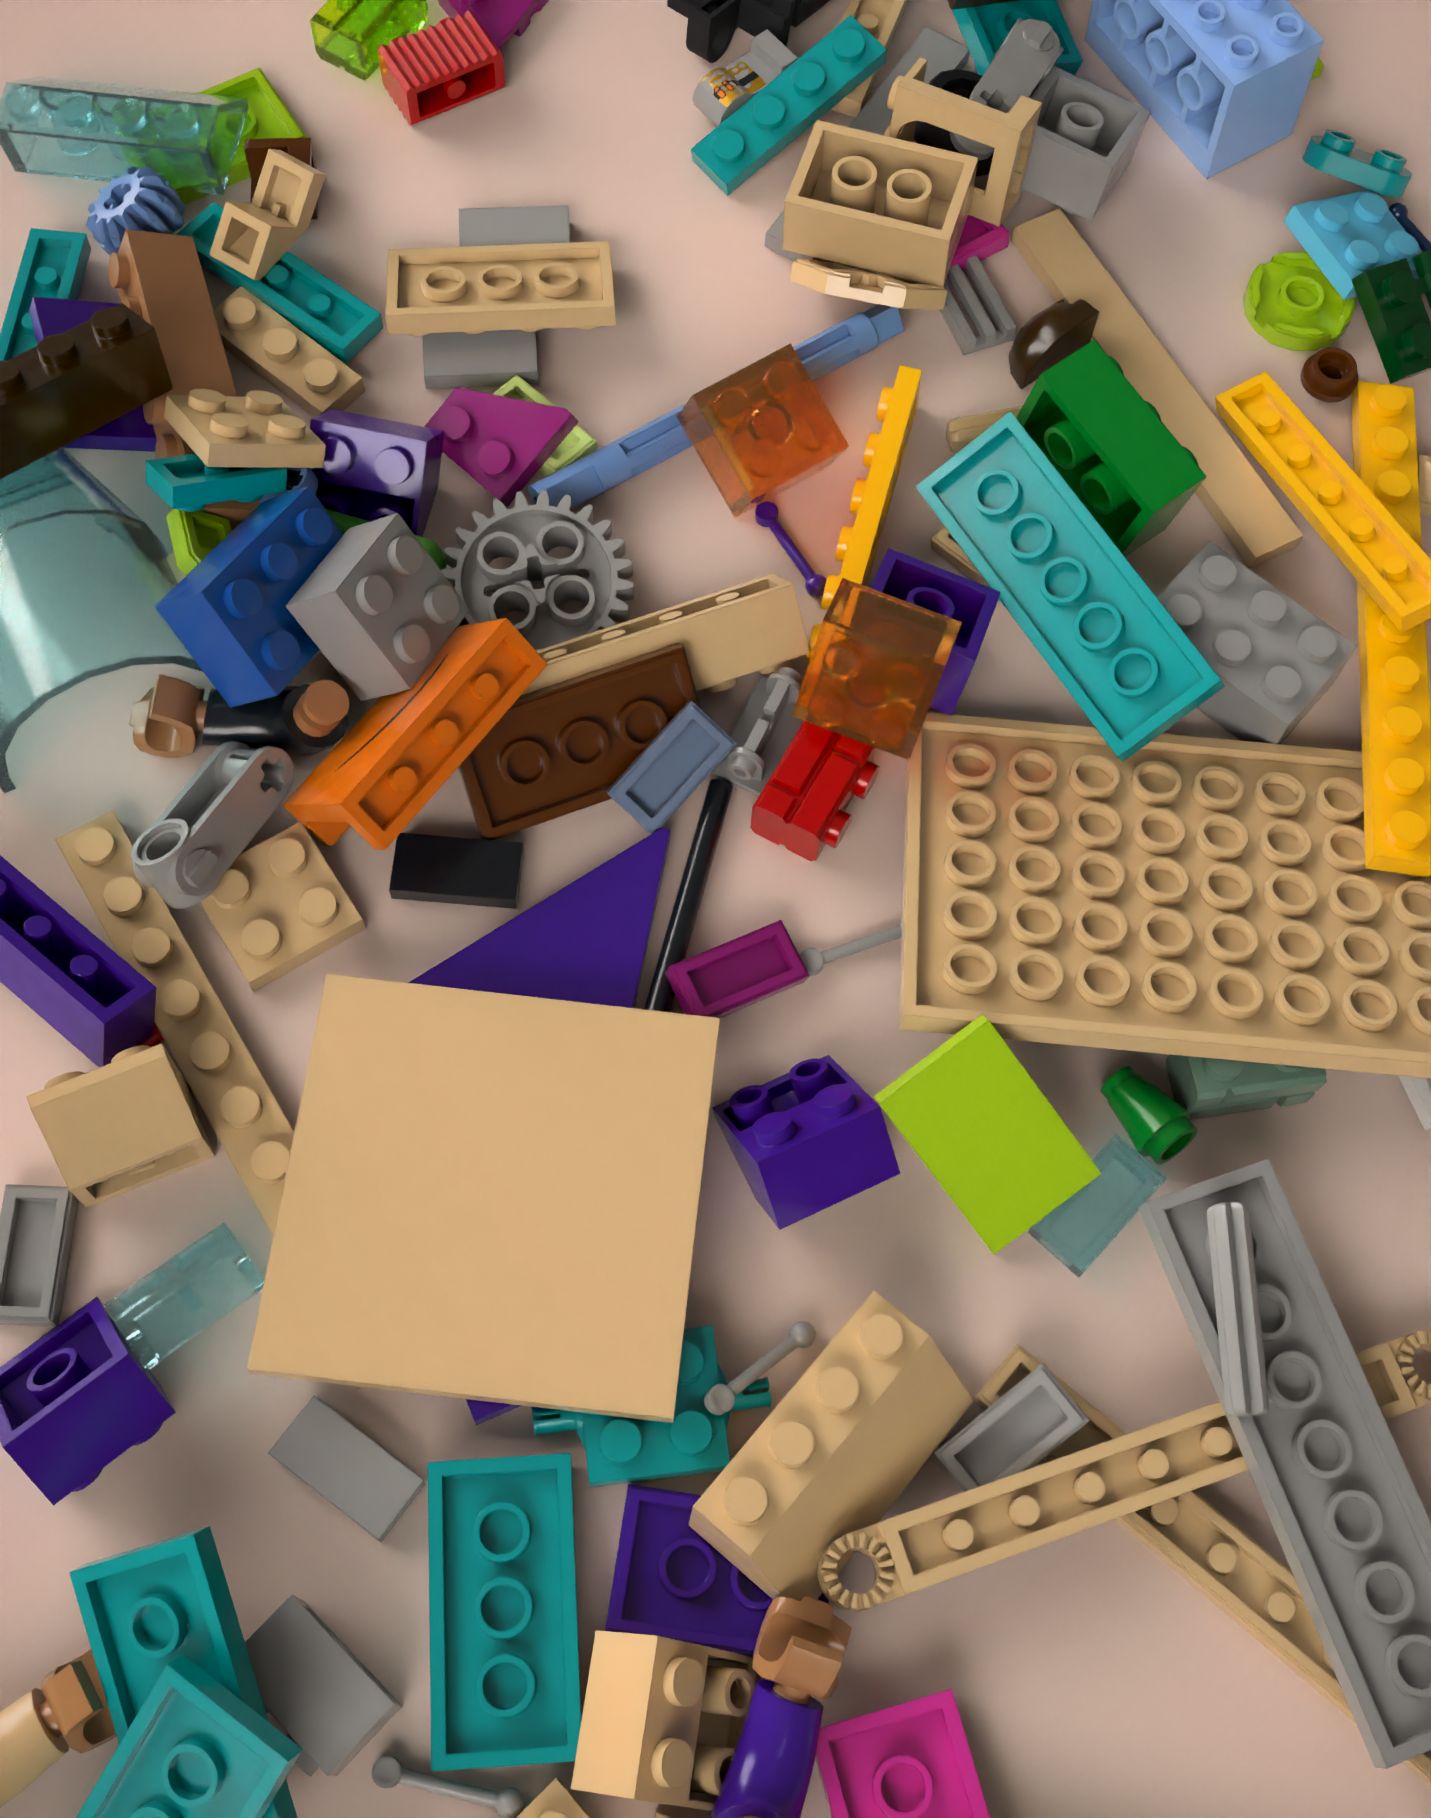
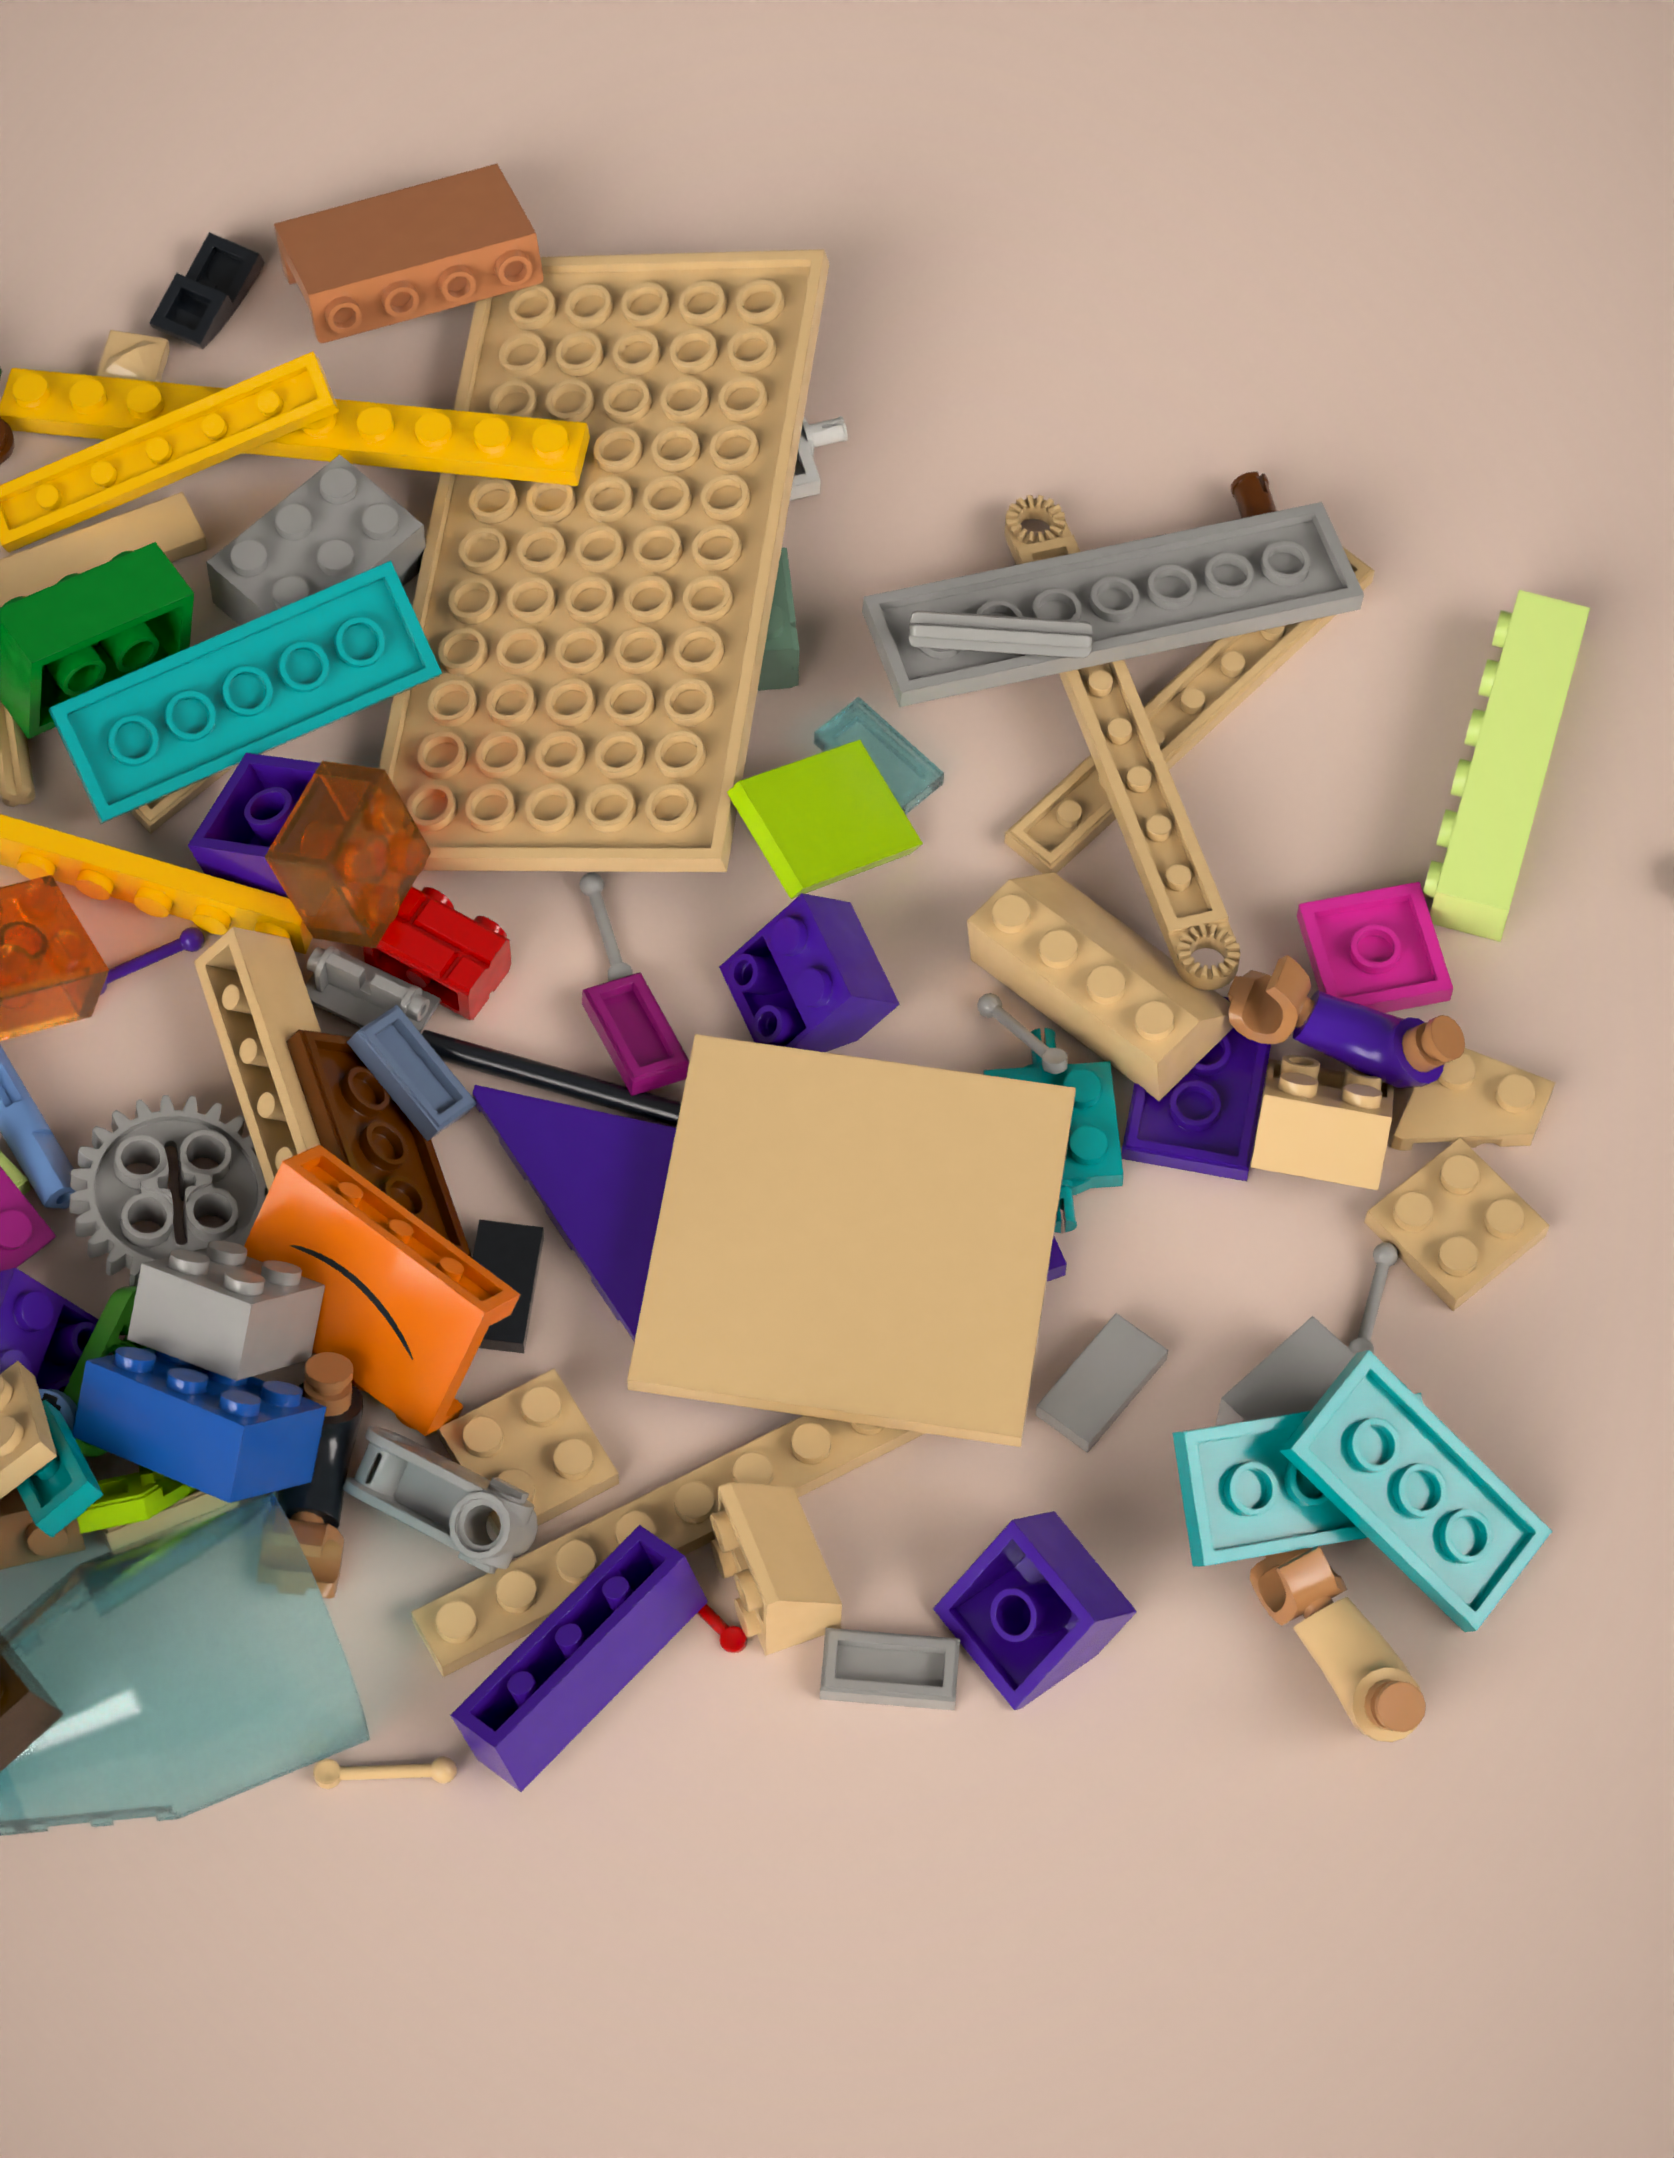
camera: 85 degrees left, 5 degrees down
(185, 1295) = (935, 1510): clear light blue hinge -> none
(503, 1612) = (1228, 1249): teal plate -> none
(1013, 1431) = (1087, 839): light grey tile -> none
(1148, 1115) = (798, 703): green cone -> none

